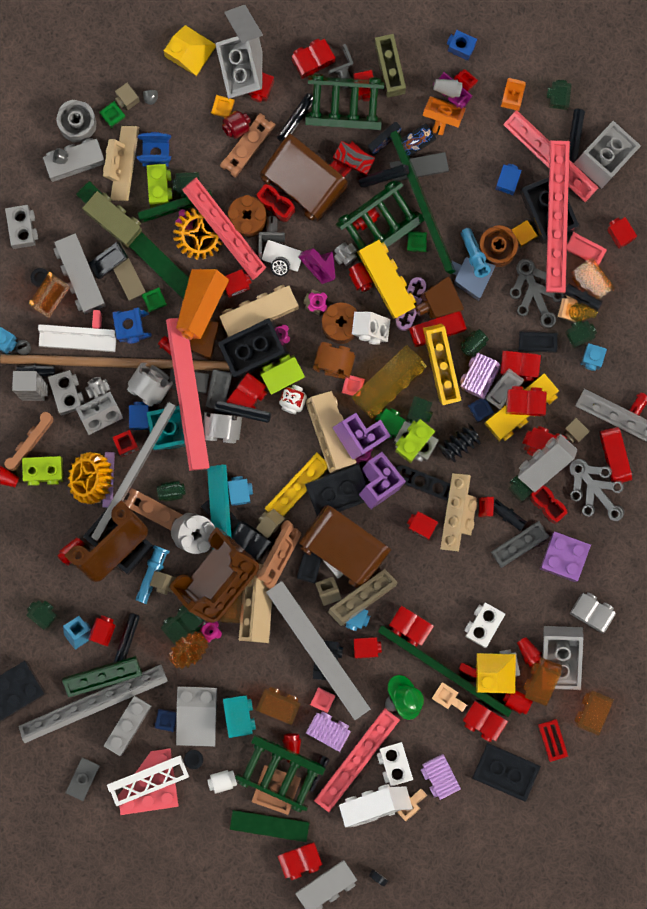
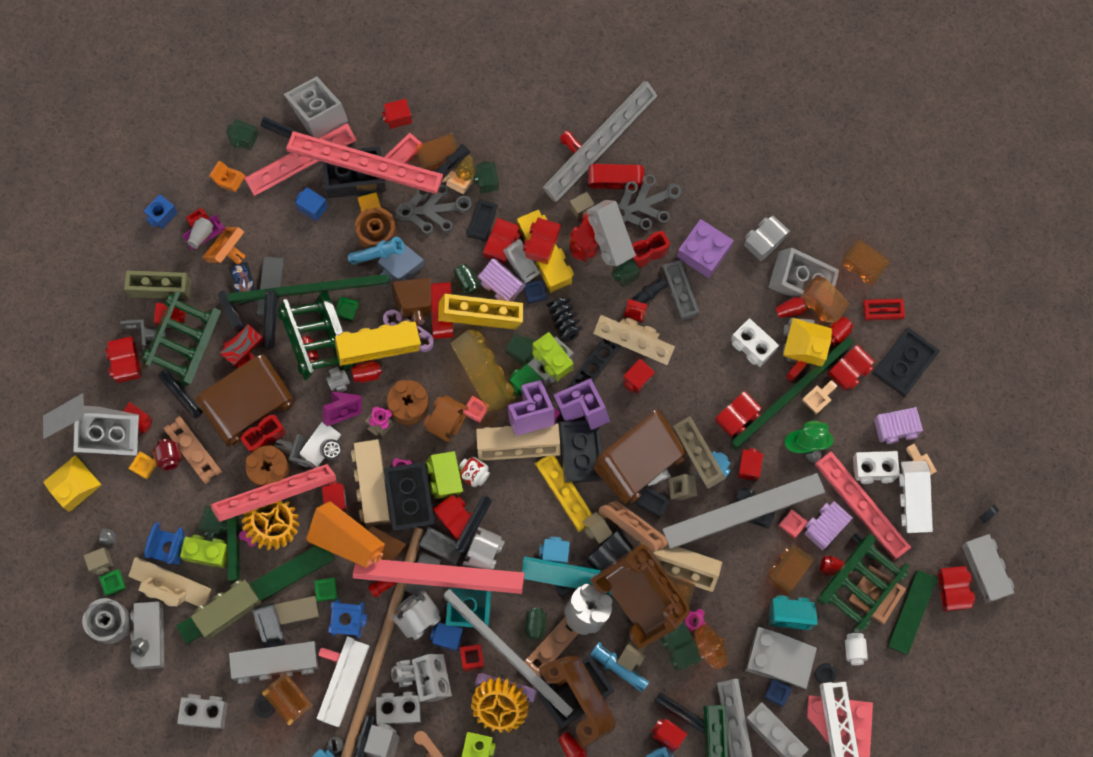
camera: 75 degrees left, 10 degrees down
(371, 327) = (422, 372): white brick -> none
(593, 357) = (513, 171): dark azure brick -> none

